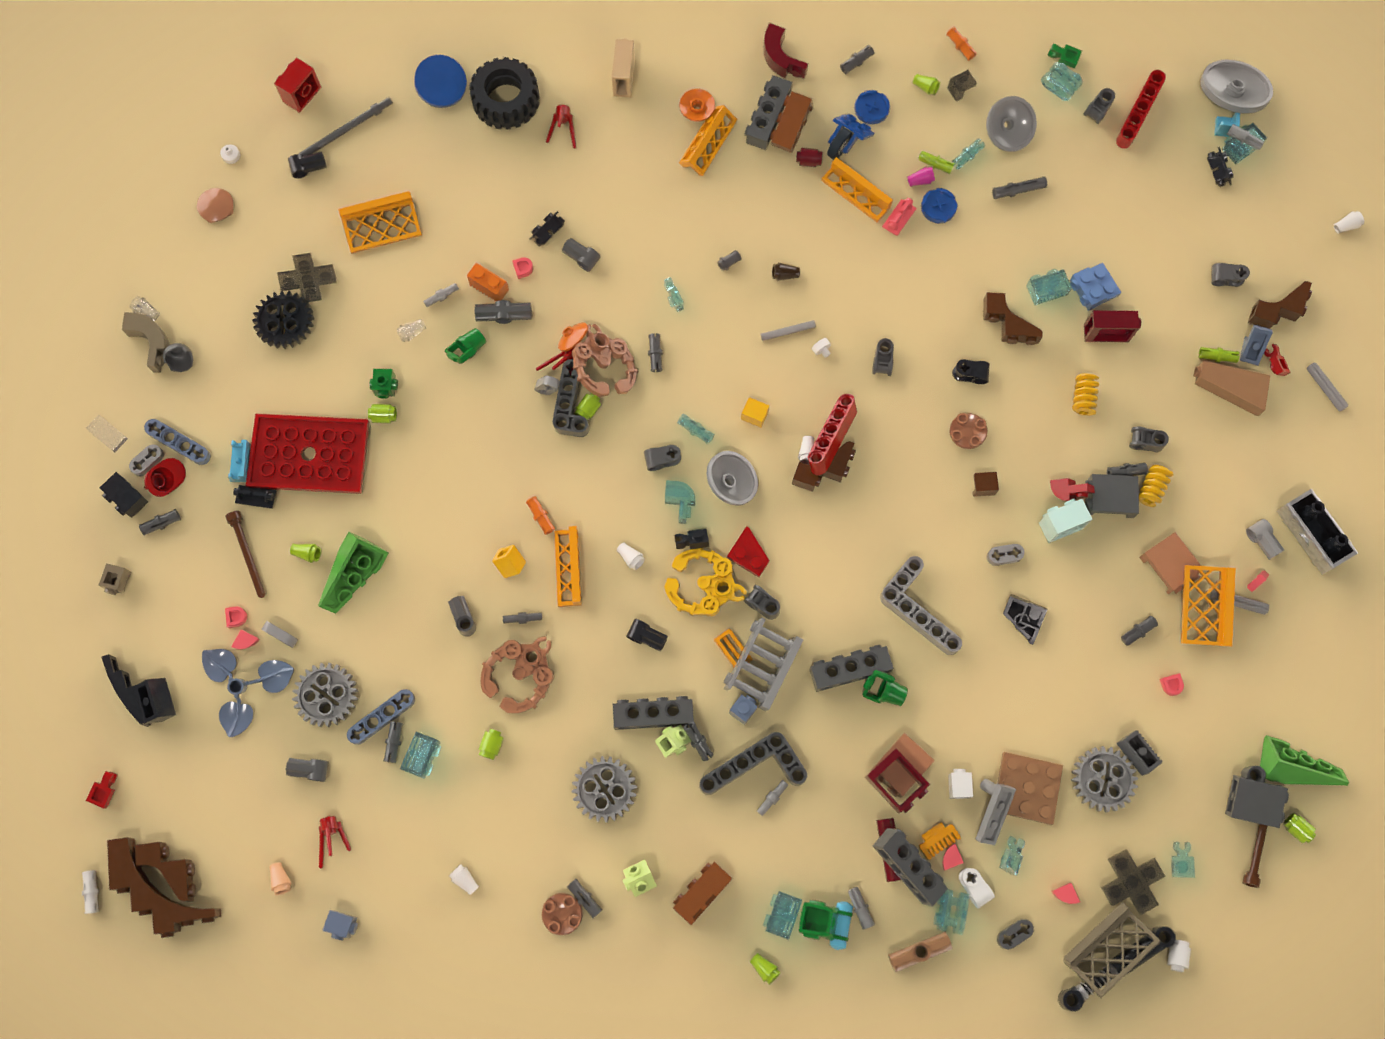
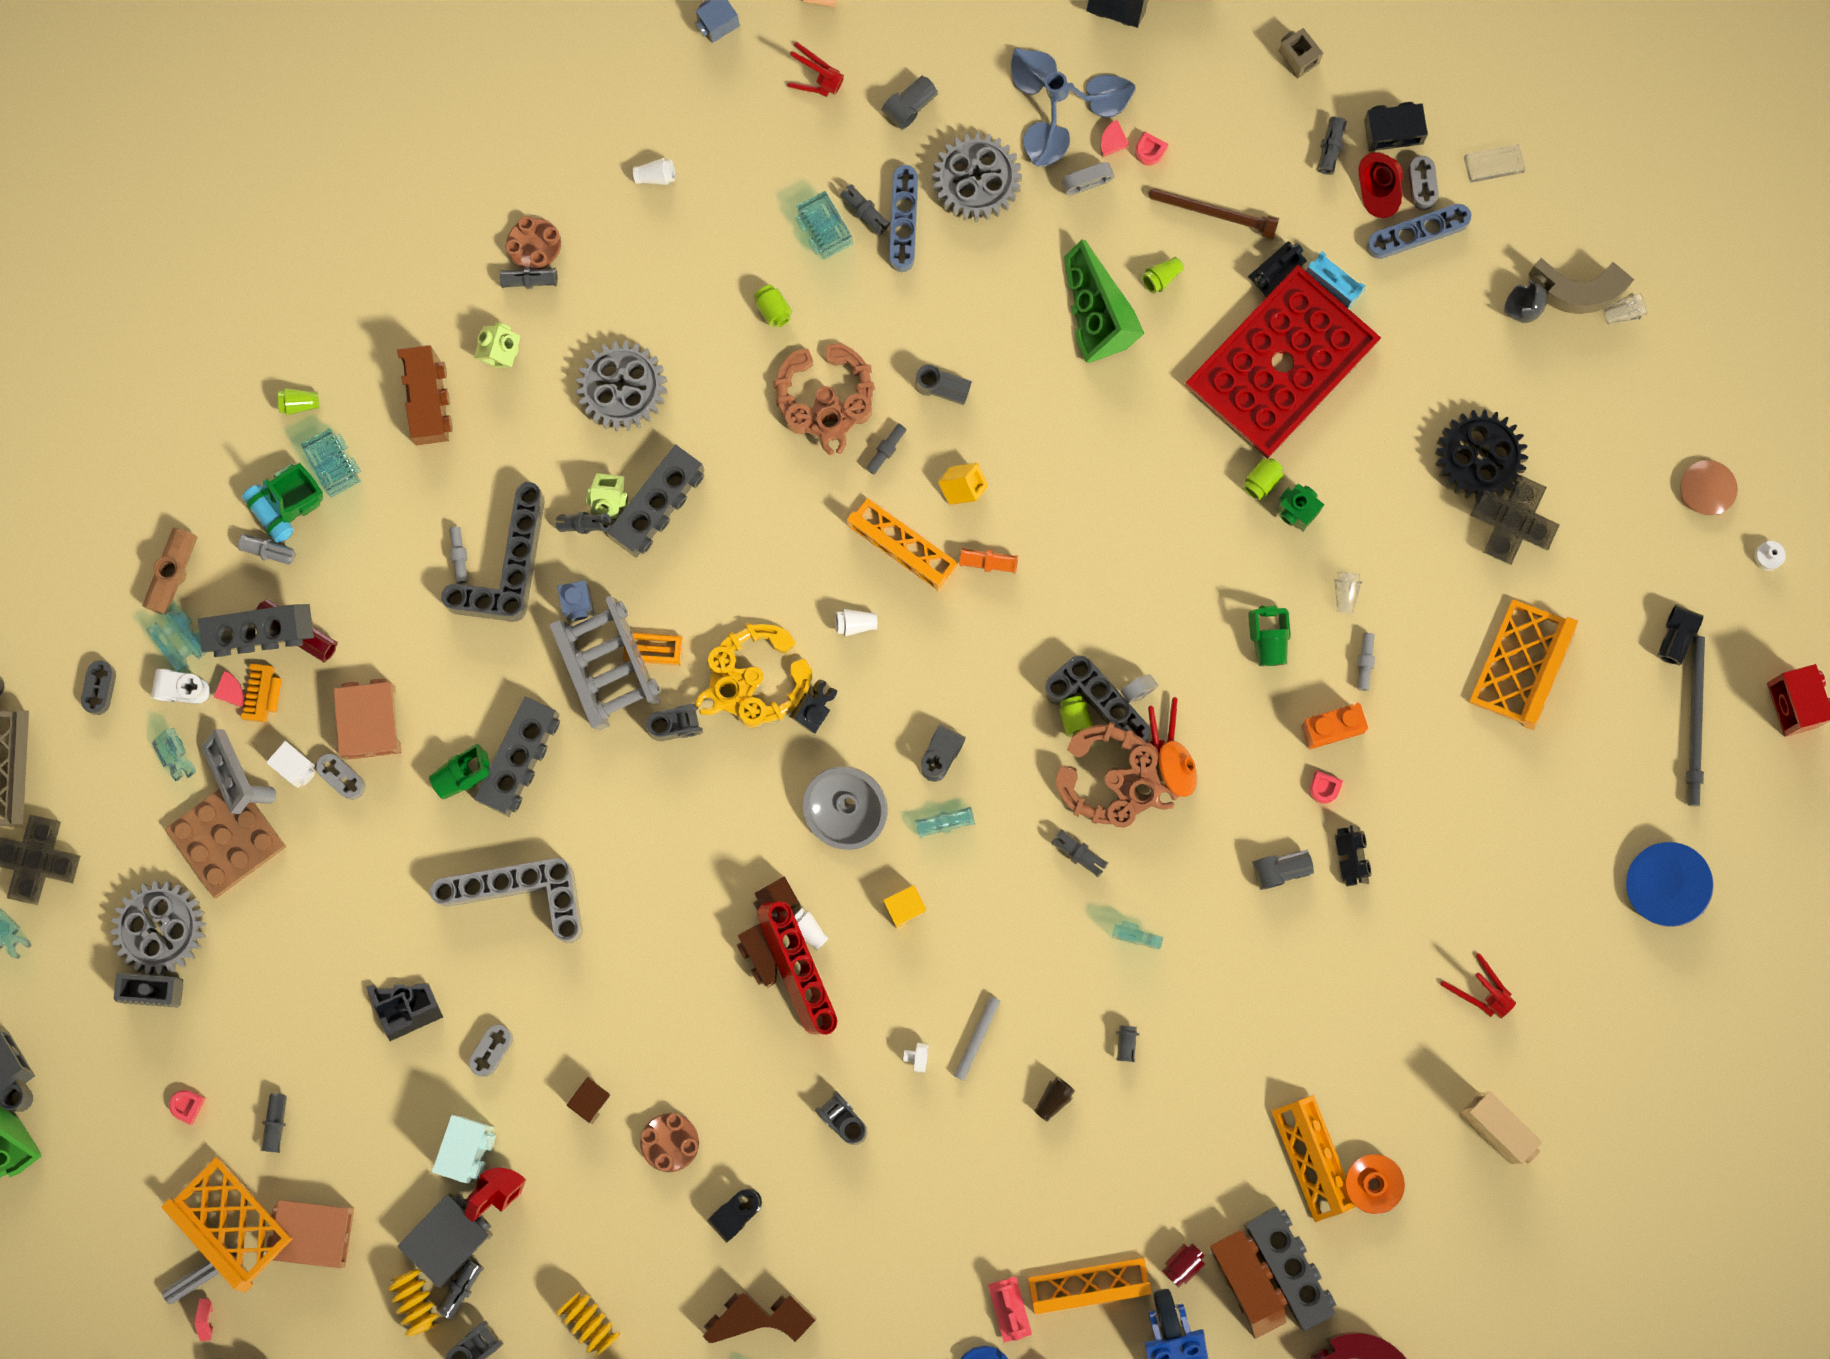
camera: 135 degrees right, 5 degrees up
(500, 73) = (1622, 940): black tyre -> none
(503, 312) = (1281, 715): dark grey piece -> none
(642, 633) = (756, 562): black piece -> none
(680, 494) = (876, 738): clear light blue brick -> none
(749, 553) = (745, 758): red wing -> none
(919, 792) = (379, 690): dark red window -> none
(937, 755) = (336, 781): none -> light grey beam
(1066, 894) = (86, 778): coral tile -> none

